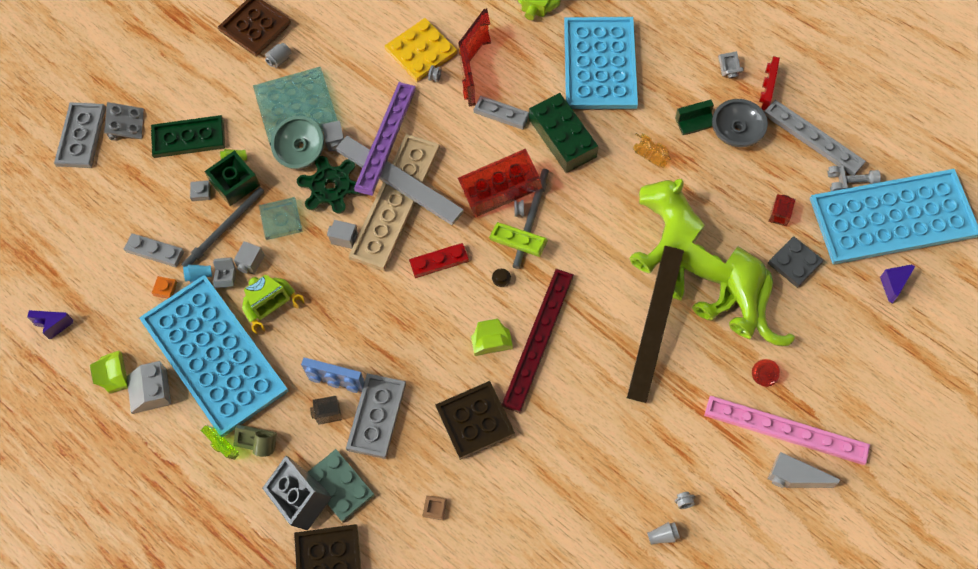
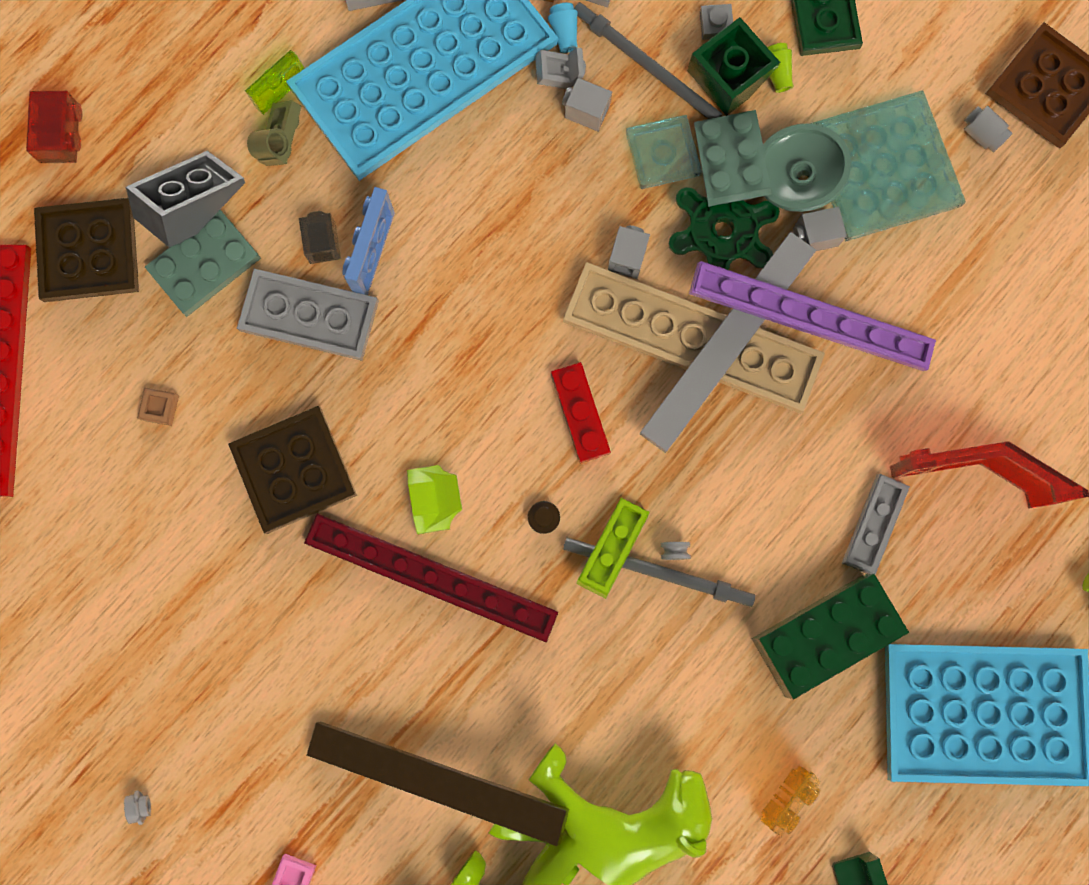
camera: 85 degrees right, 15 degrees up
(265, 296) = (514, 134): lime torso -> none
(288, 179) = (732, 158): none -> sand green plate
(420, 49) = (1009, 379): yellow plate -> none
(434, 73) = (954, 403): light grey bush -> none
(500, 182) = (719, 517): clear red brick -> none
(664, 534) = (84, 769): light grey cone -> none

